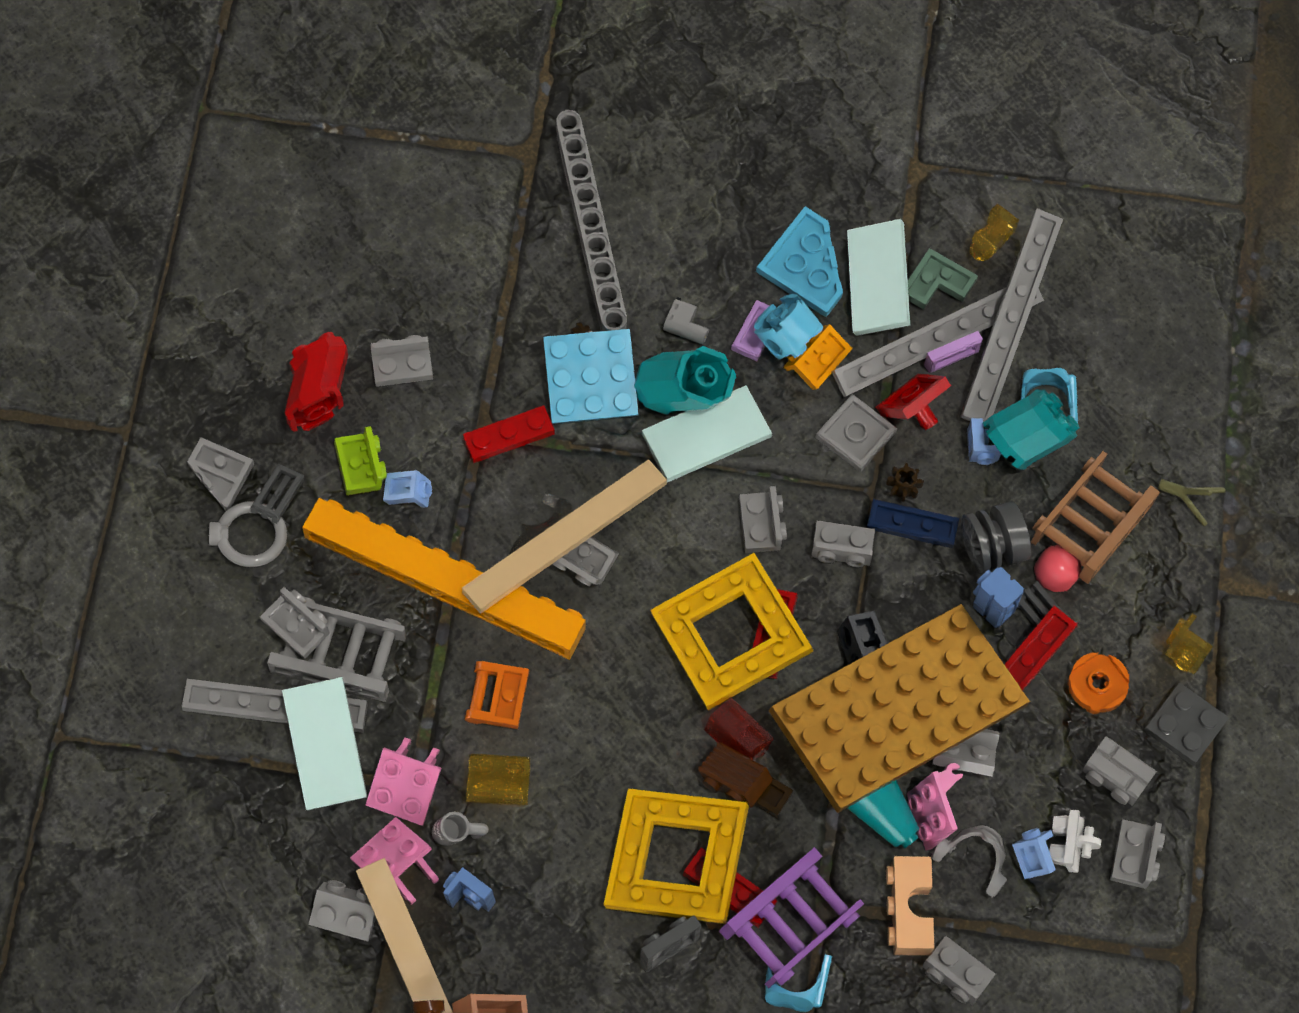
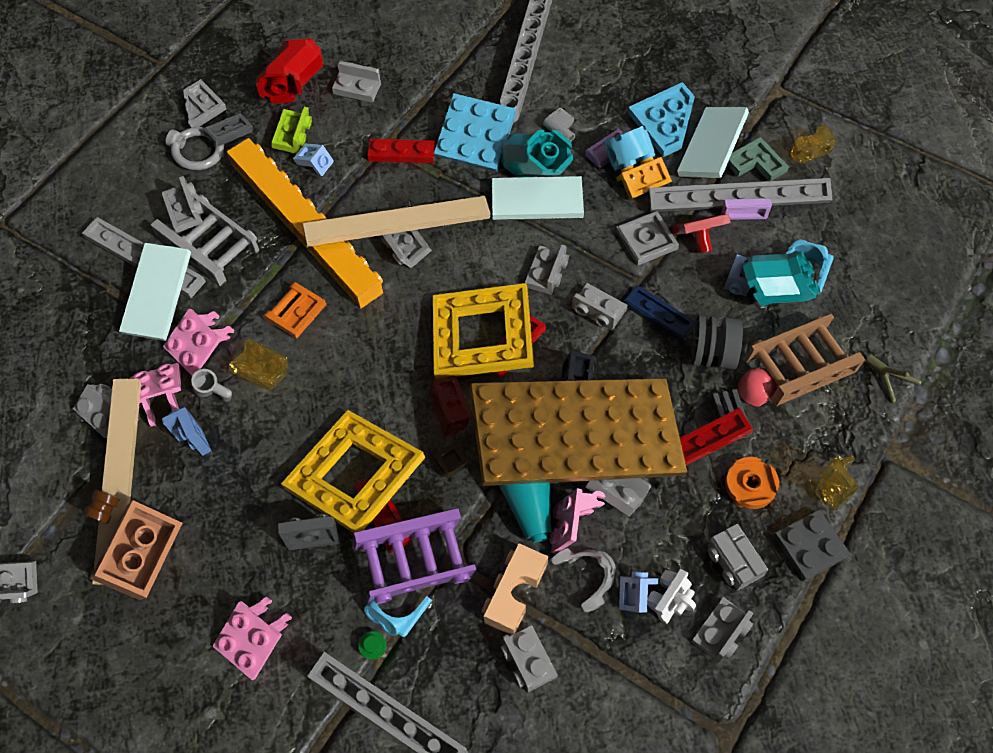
camera: 30 degrees right, 5 degrees down
(734, 775) = (429, 431): reddish brown brick -> none
(904, 474) = (666, 281): dark brown gear -> none
(997, 596) = (697, 384): medium blue brick -> none
(1012, 316) = (803, 196): light grey plate -> none

